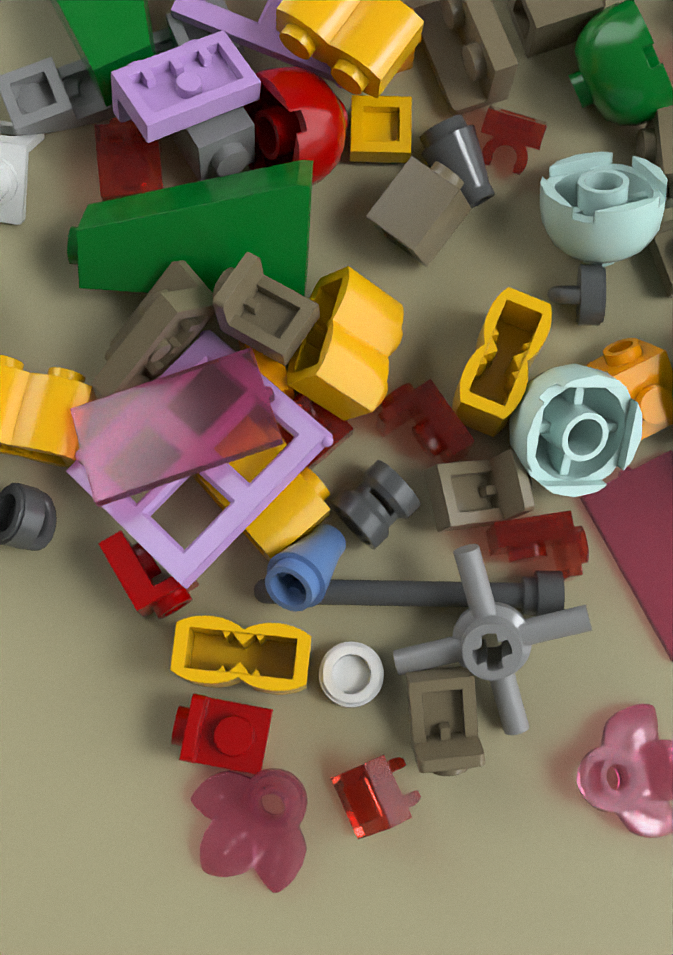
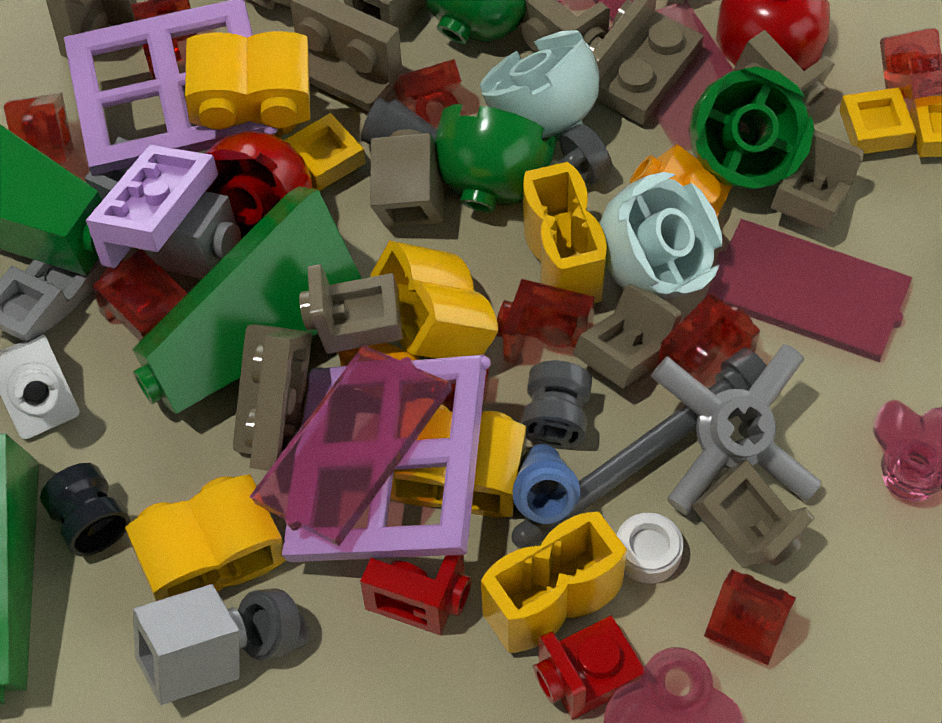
camera: 30 degrees left, 20 degrees down
(500, 243) = (489, 155): none -> green cylinder

